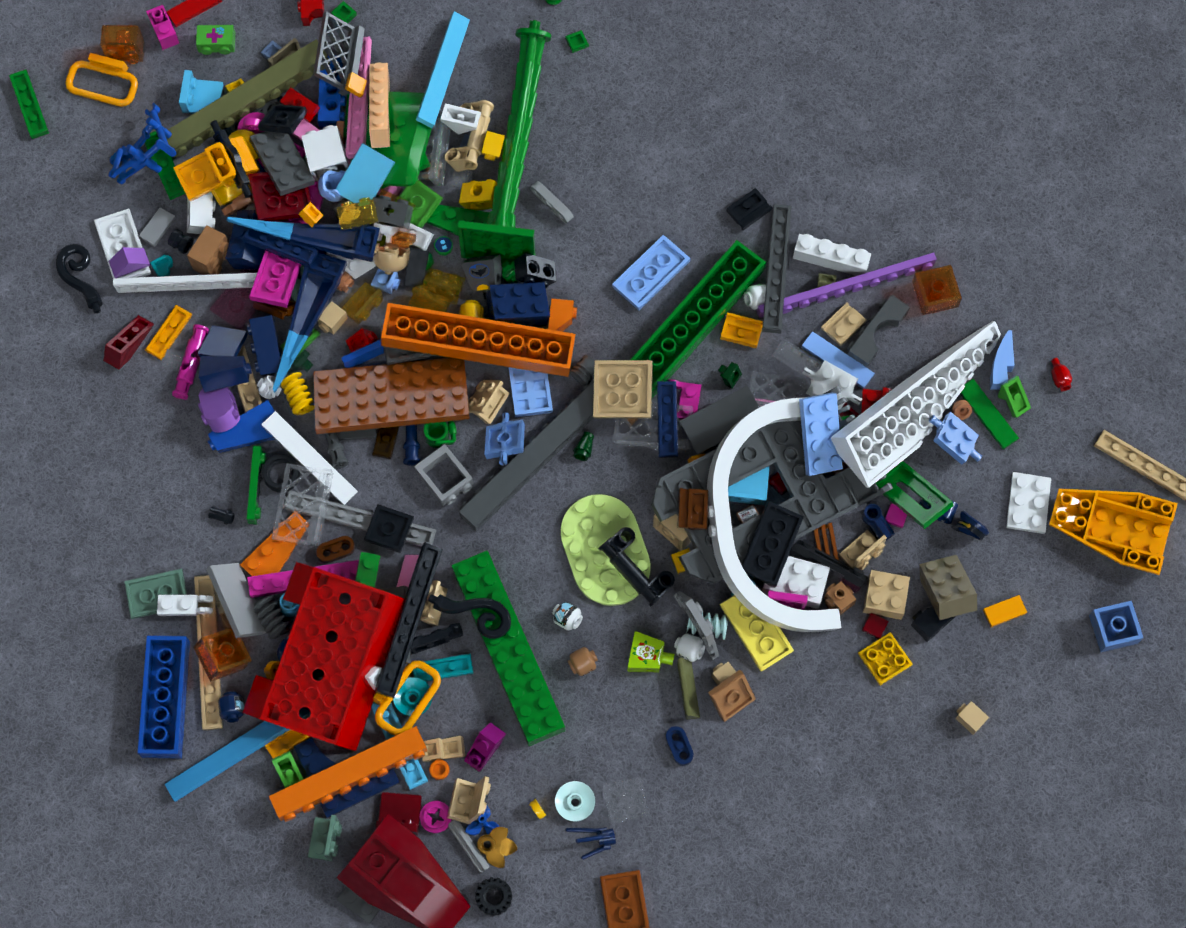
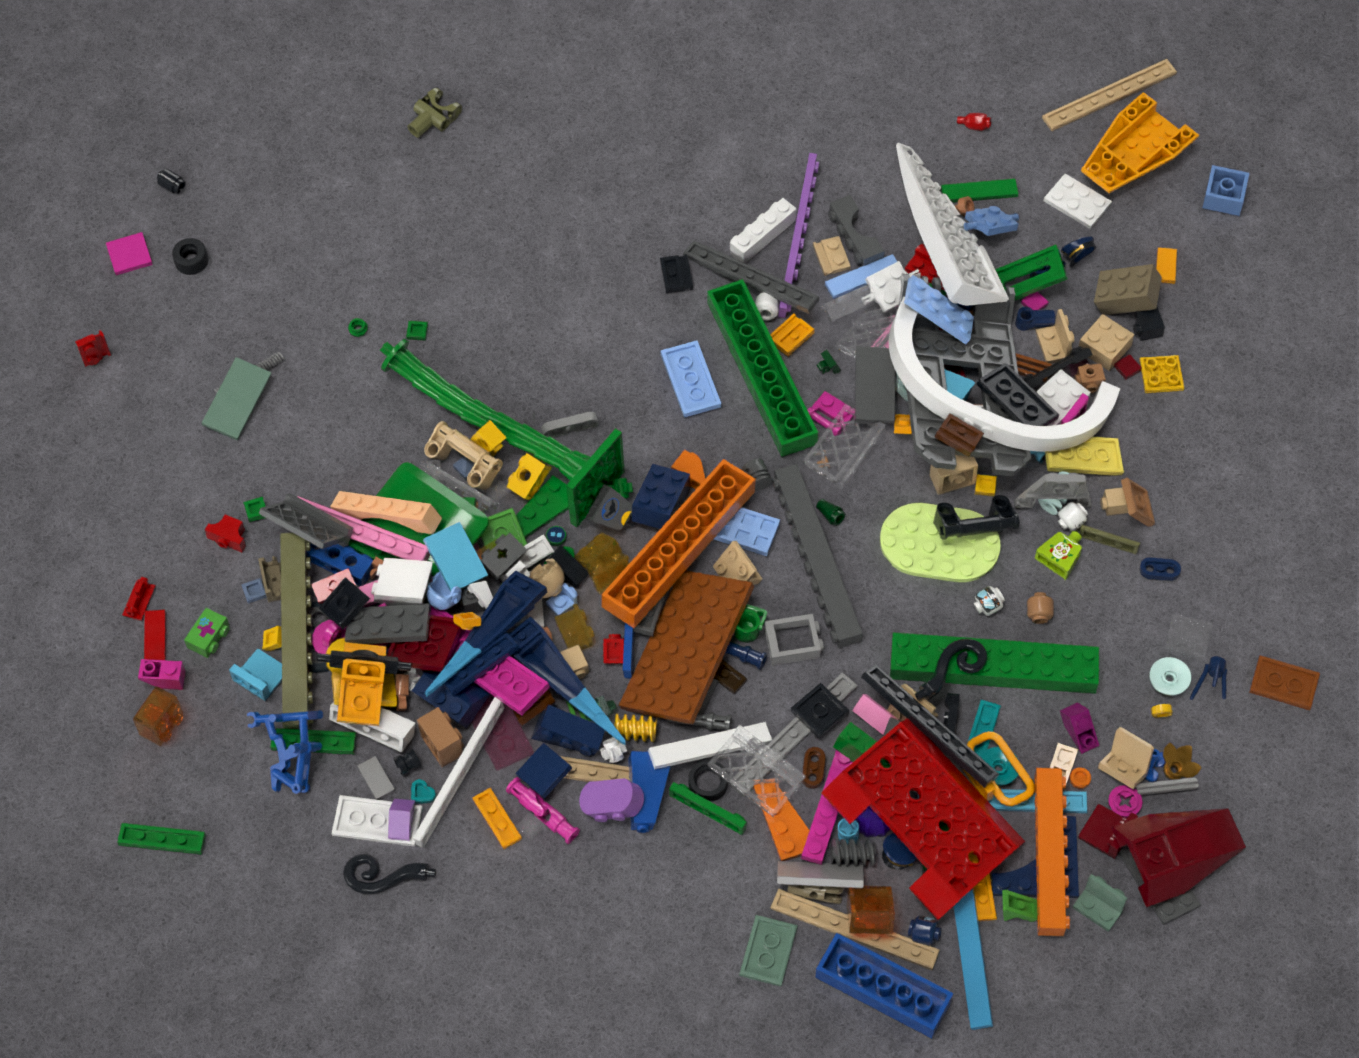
camera: 60 degrees left, 10 degrees down
(107, 66) = (168, 746): light orange bar -> none
(126, 342) = (487, 858): dark red slope -> none
(183, 605) = (796, 928): white hinge -> none
(222, 515) = (724, 850): black pin -> none
(223, 371) = (578, 777): dark blue slope -> none
(271, 669) = (907, 876): light orange tile -> none
(355, 84) = (350, 523): light orange tile -> none
(357, 214) = (493, 578): clear yellow bracket -> none
(372, 676) = (969, 782): white tile -> none
(403, 239) = (536, 559): clear orange plate -> none
(442, 70) = (380, 446): medium azure tile -> none
(460, 119) = (445, 451): white slope -> none
(472, 308) = (639, 539): yellow head -> none
(493, 883) = (1226, 774): black tyre -> none
(504, 439) = (788, 570): medium blue plate -> none
(534, 269) = (634, 466): black brick -> none
(622, 389) = (801, 446): tan plate -> none
(667, 419) = (849, 426): dark blue tile -> none
(825, 279) = (782, 249): olive tile -> none
(936, 290) = (844, 169): clear orange brick -> none
(971, 717) = (1250, 333): tan brick -> none
(1002, 362) = (939, 155): light blue slope -> none
(1015, 396) = (977, 160): bright green slope -> none

